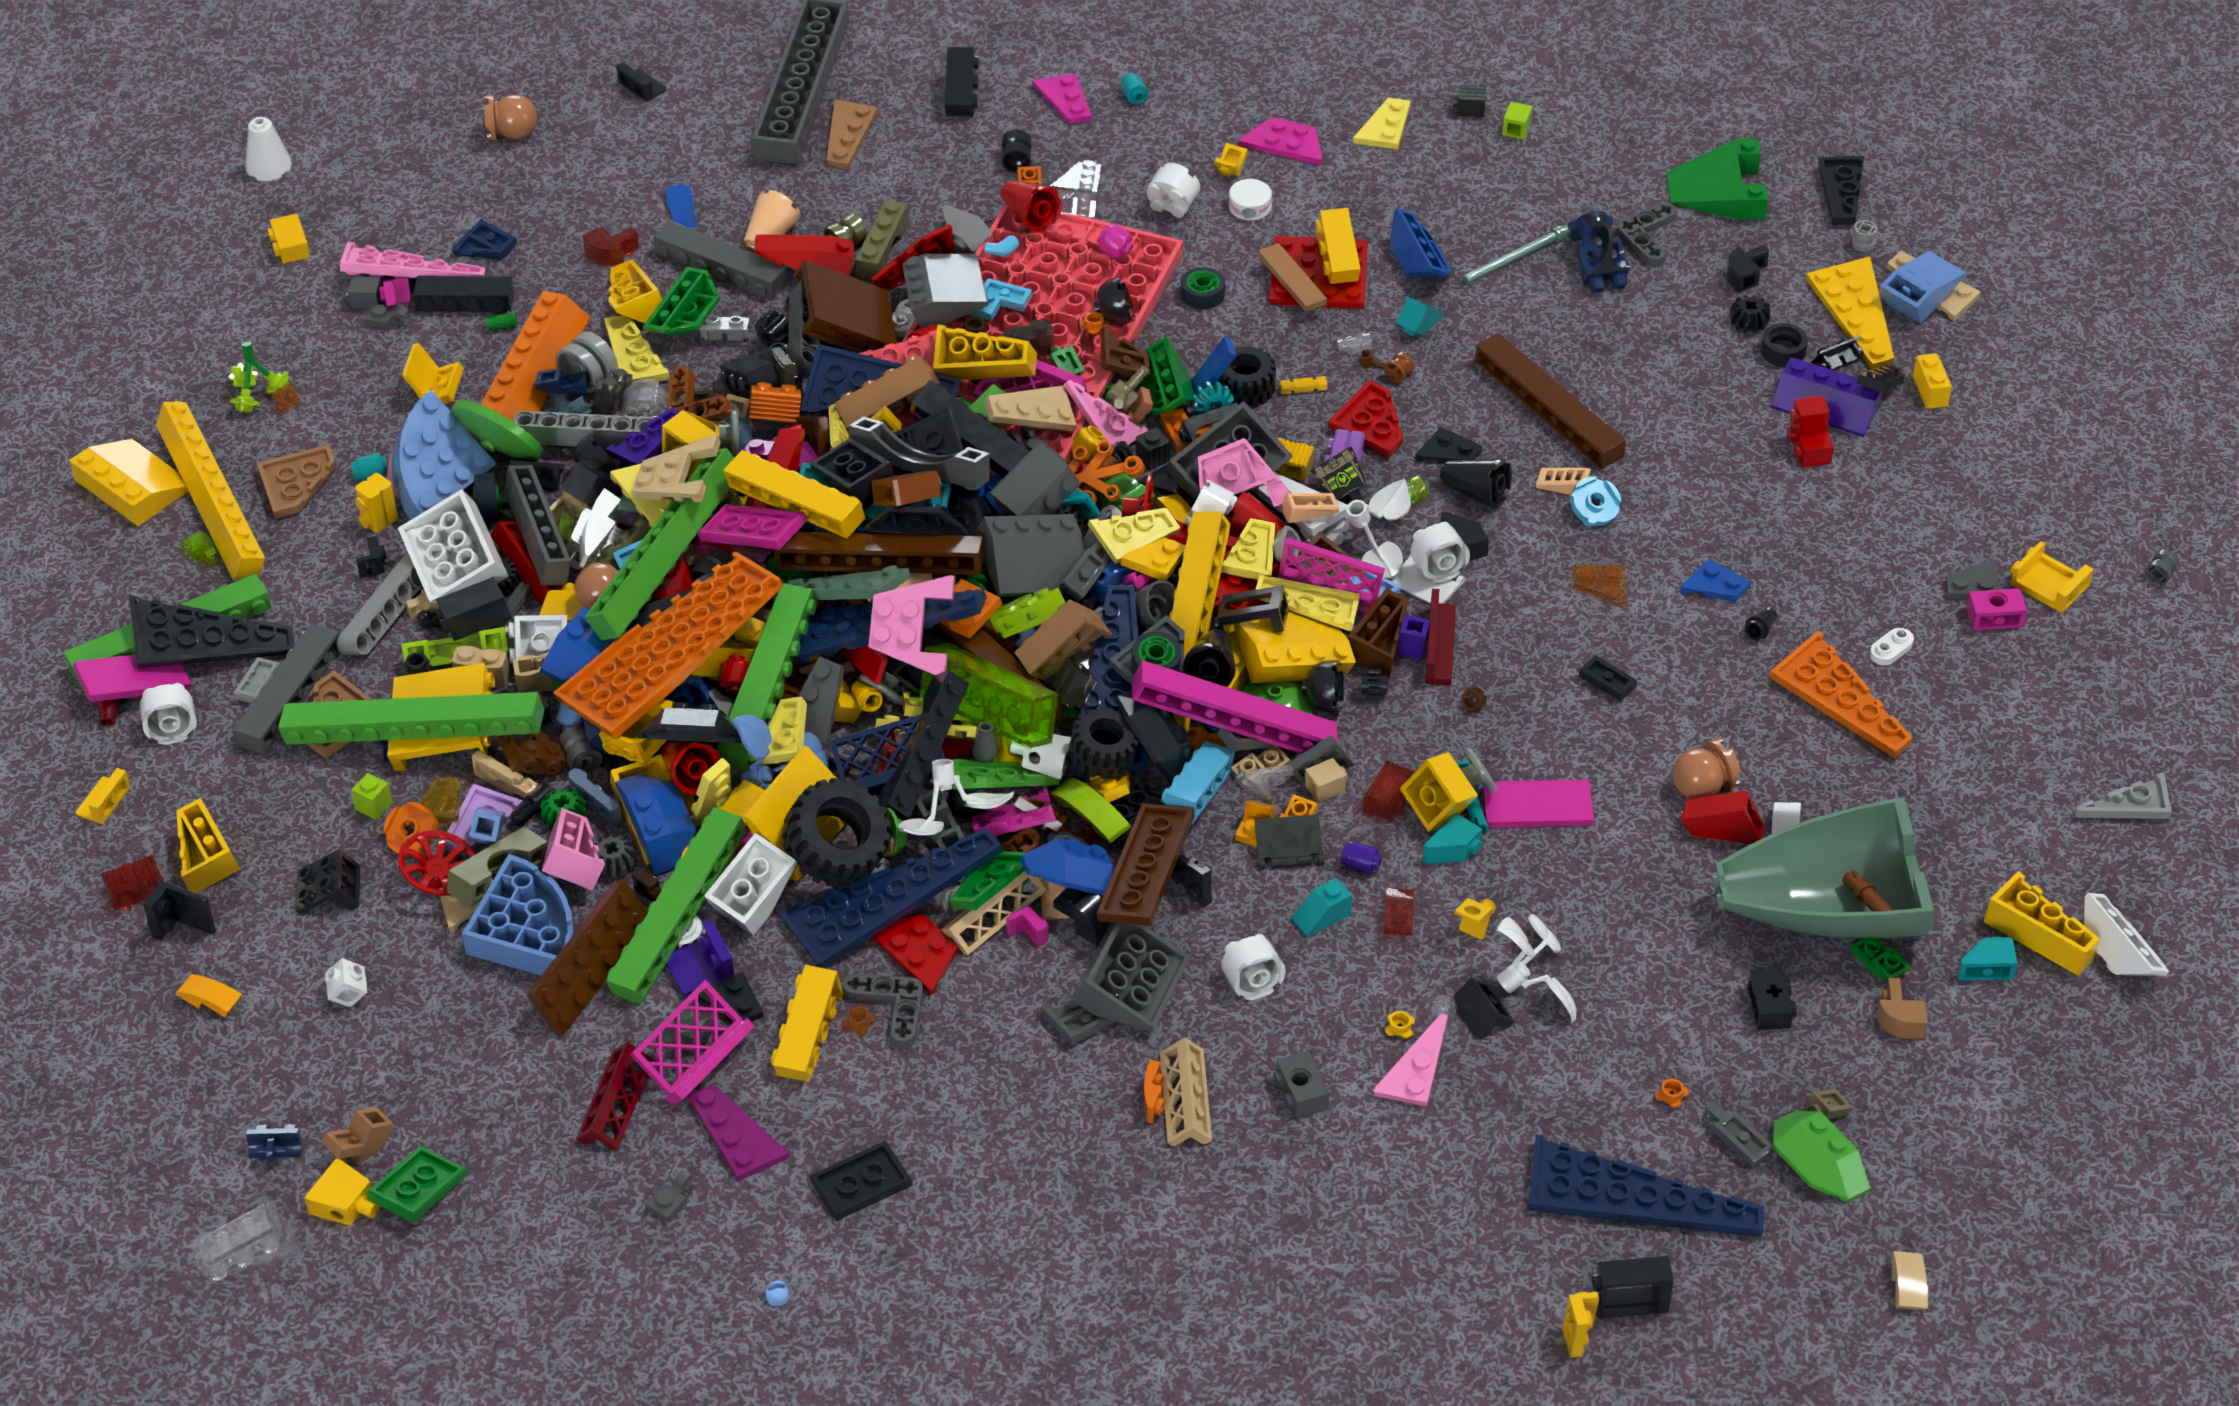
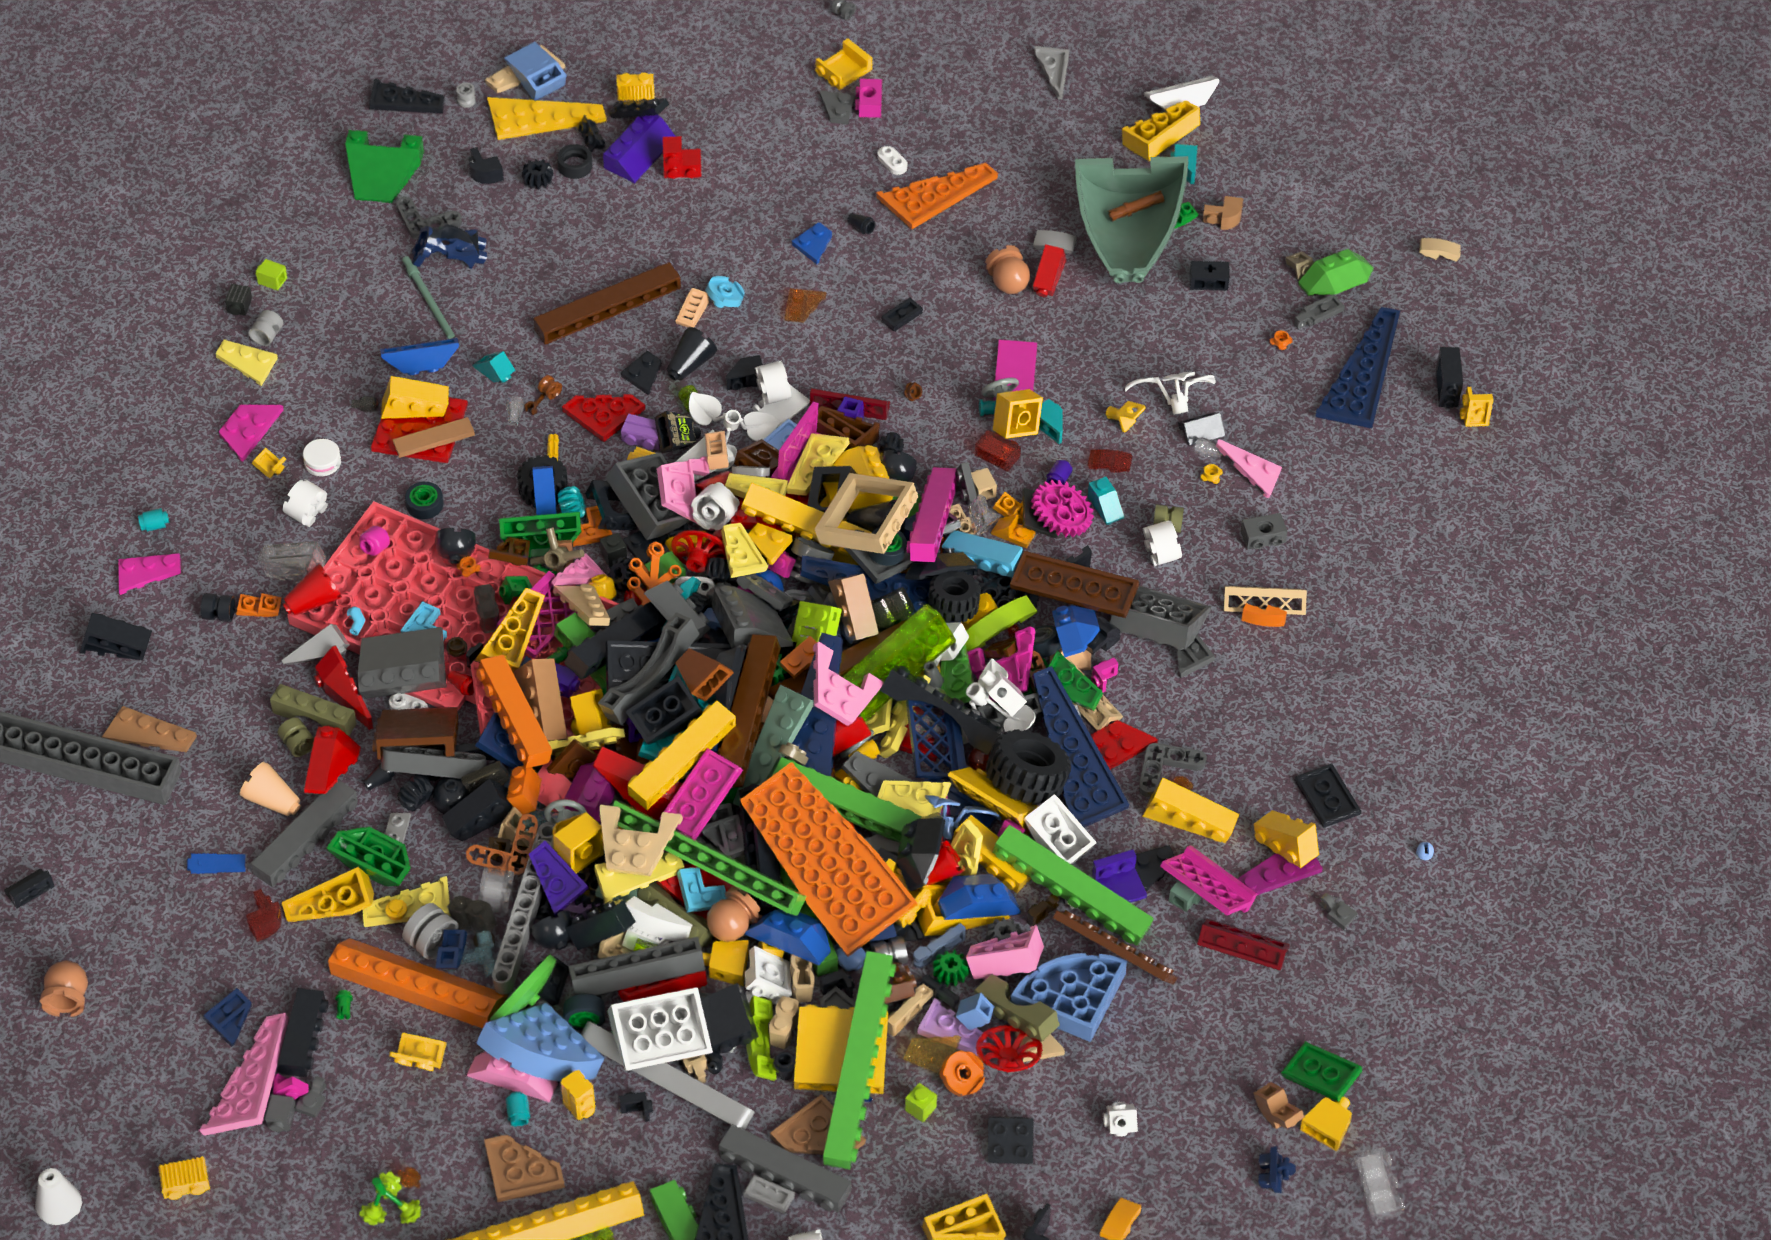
camera: 85 degrees left, 5 degrees up
(617, 336) = (396, 909): none -> yellow plate
(767, 1122) = (1288, 837): none -> yellow wedge
(817, 600) = (794, 753): none -> dark tan plate
(866, 363) = (514, 711): none -> orange brick
(951, 798) = (1003, 691): none -> white torso
(1197, 601) = (854, 483): none -> tan window
(1277, 844) = (1062, 508): none -> dark pink gear
(1302, 975) = (1174, 515): none -> olive wheel
(1431, 126) = (266, 328): none -> light grey wheel

